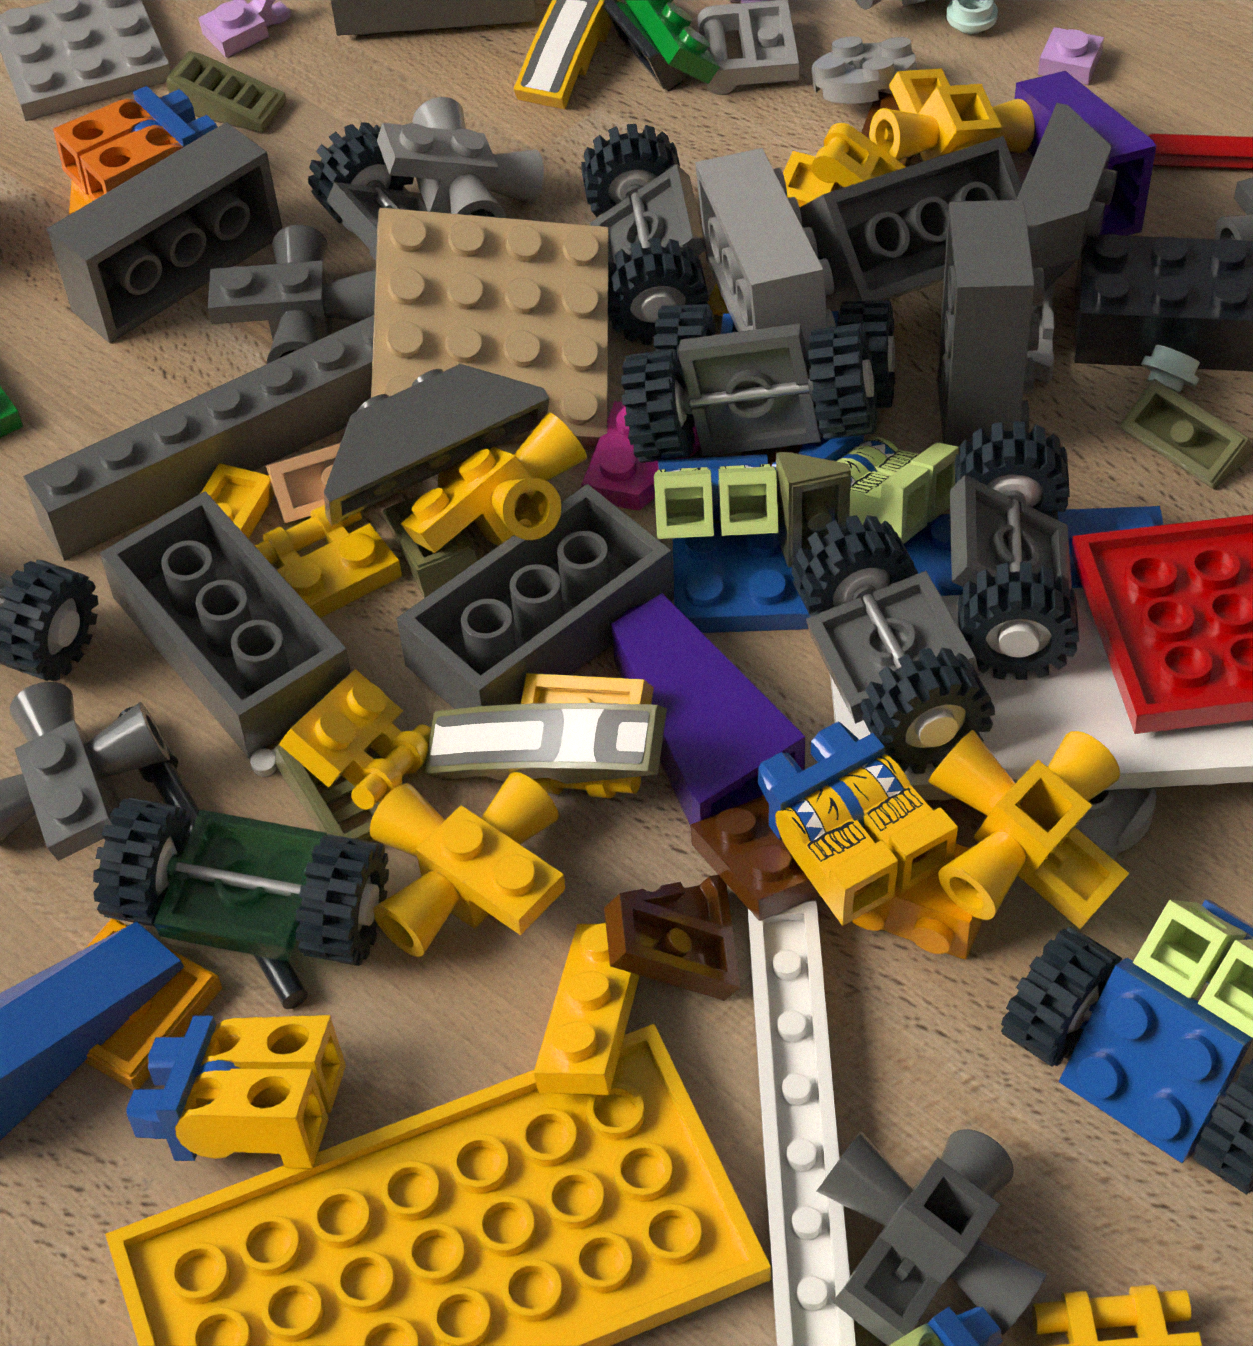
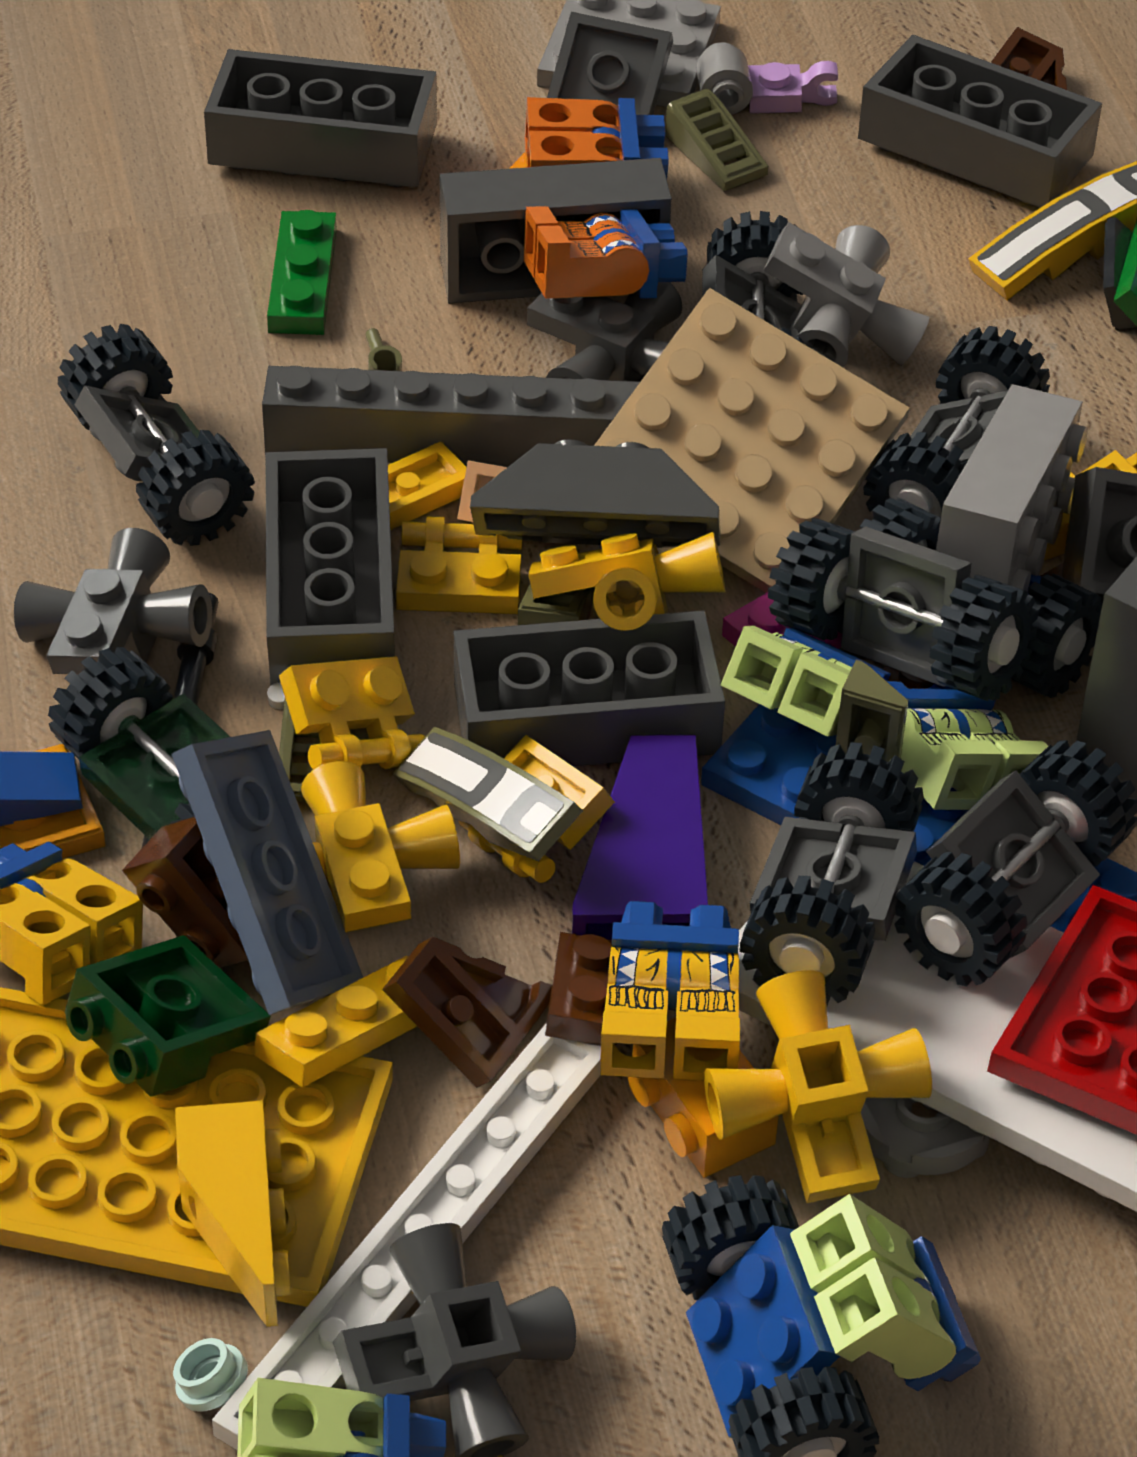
camera: 30 degrees right, 5 degrees down
(88, 67) = (611, 62): none -> dark grey plate
(99, 419) = (382, 356): none -> olive hand
(185, 29) = (726, 74): none -> light grey brick
(240, 230) = (601, 254): none -> orange hips
(379, 975) = (185, 892): none -> reddish brown brick
(436, 922) = (267, 869): none -> sand blue plate
(438, 1109) = (161, 1013): none -> dark green plate
(638, 1232) = (228, 1198): none -> yellow slope

